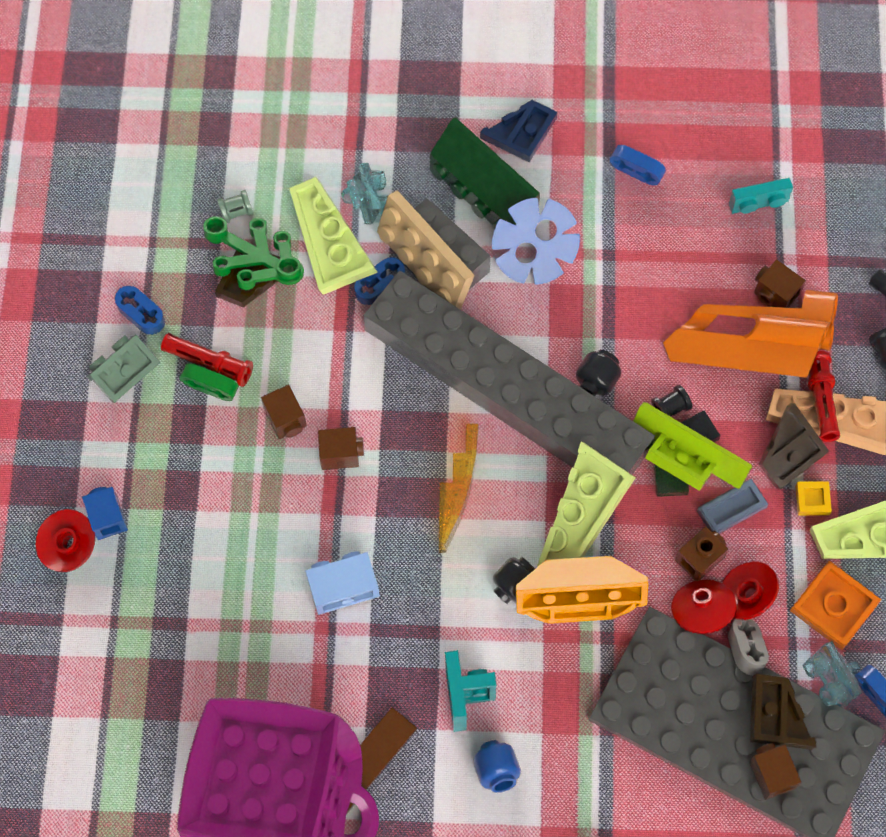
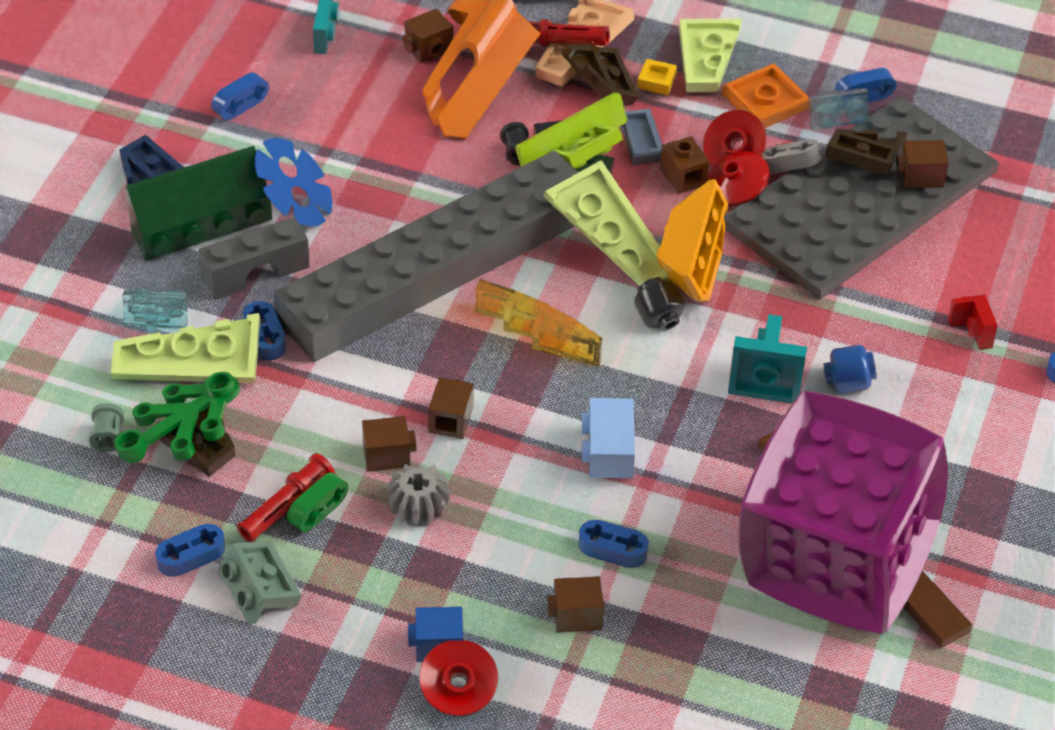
camera: 75 degrees left, 20 degrees down
(164, 607) = (576, 604): none -> reddish brown brick
(249, 619) = (613, 543): none -> blue beam
(251, 457) = (418, 493): none -> light grey gear
(424, 251) = (252, 269): tan plate -> none
(598, 372) = (458, 178): black head -> none

